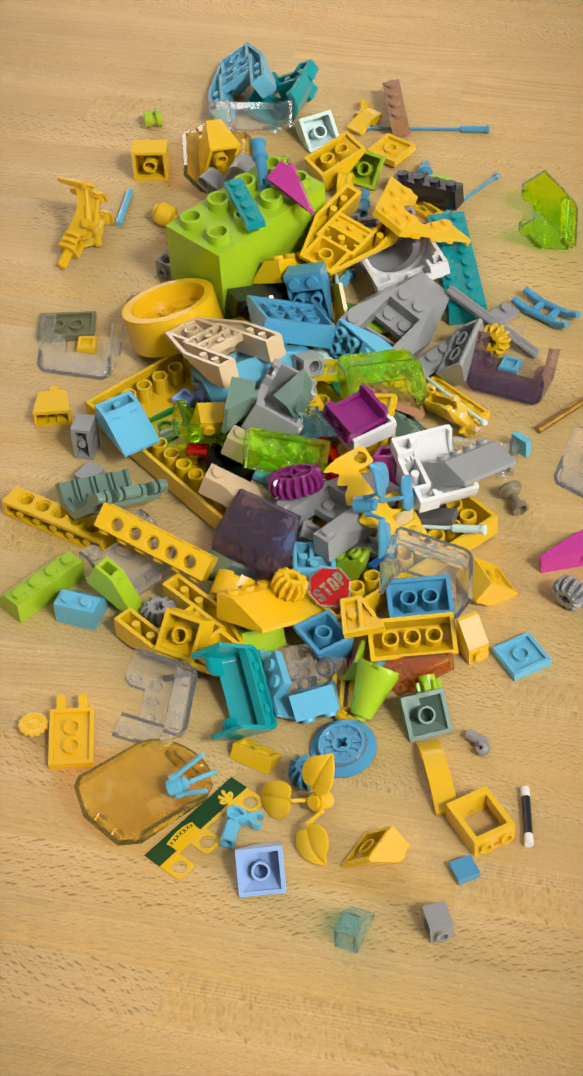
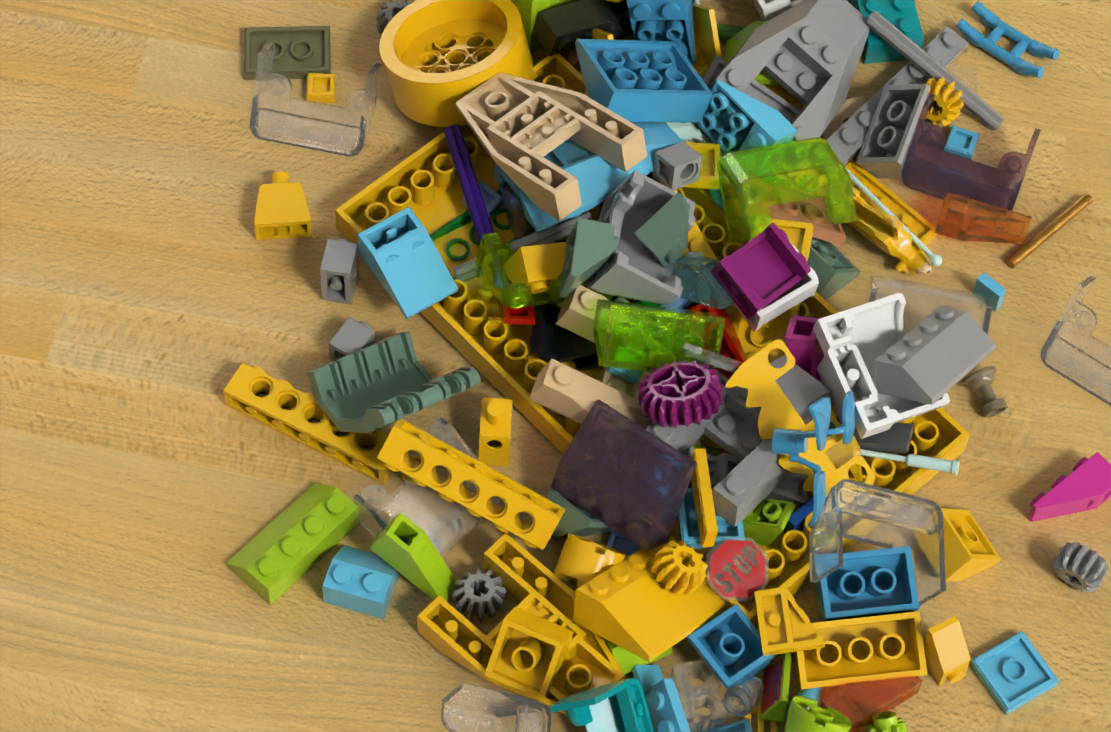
camera: 10 degrees left, 15 degrees up
(171, 376) = (468, 181): none -> dark purple axle
(179, 512) = (495, 425): none -> yellow torso
(307, 543) = (703, 499): none -> yellow tile
(319, 459) = (711, 357): none -> clear tile
(518, 405) = (980, 222): none -> clear orange slope

